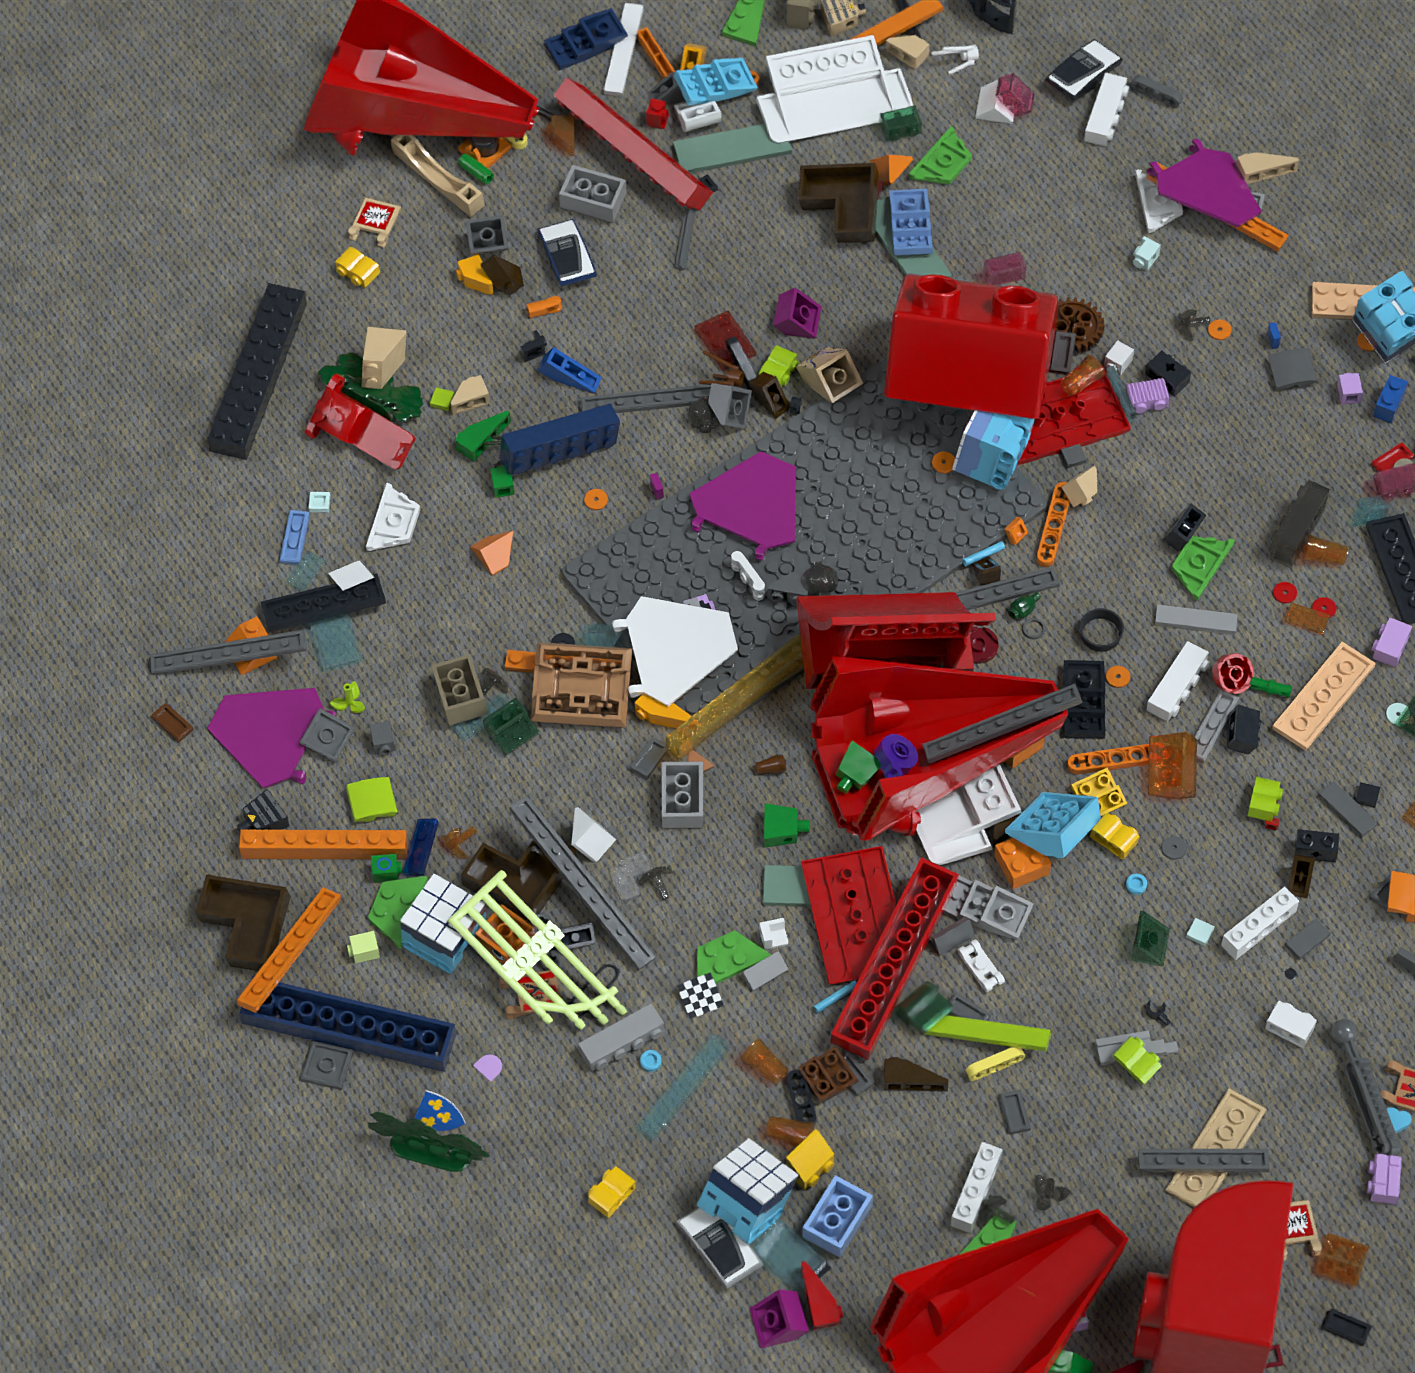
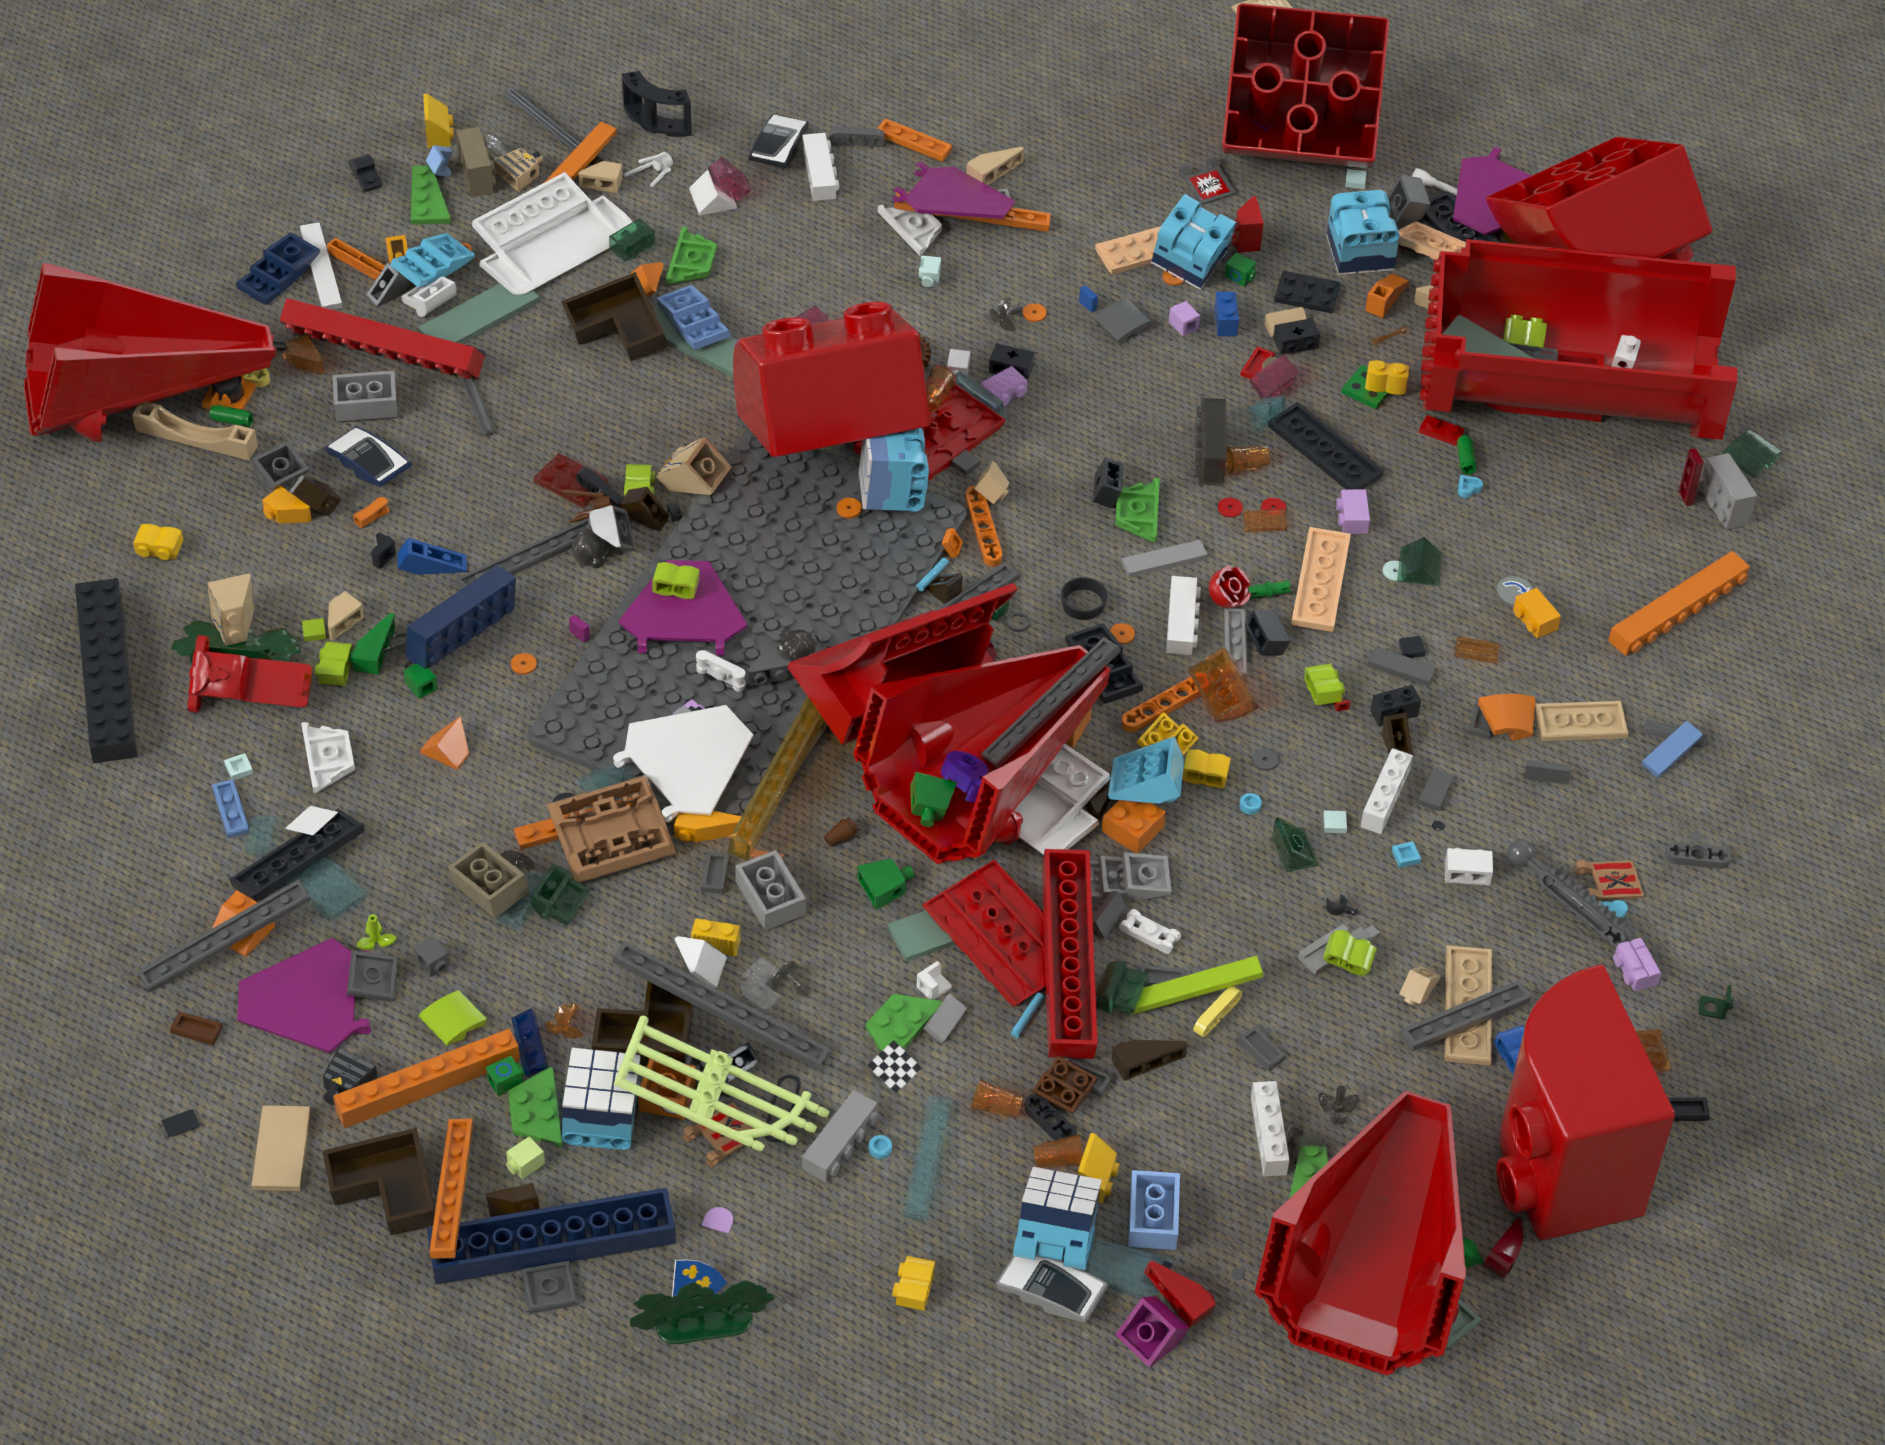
camera: 30 degrees left, 10 degrees down
(120, 799) = (180, 1123): none -> black piece
(184, 855) = (281, 1148): none -> tan tile
(335, 981) = (512, 1200): none -> dark brown slope
(375, 218) = (151, 493): flag -> none
(441, 438) = (334, 663): none -> lime brick
(616, 817) = (720, 935): none -> yellow brick
(657, 114) = (389, 308): red brick -> none
(754, 475) = (675, 580): none -> lime brick
(797, 314) = (628, 432): magenta slope -> none
(1182, 1114) = (1419, 985): none -> tan slope
(1208, 113) = (915, 140): none -> orange plate
(1244, 988) = (1406, 854): none -> medium azure tile

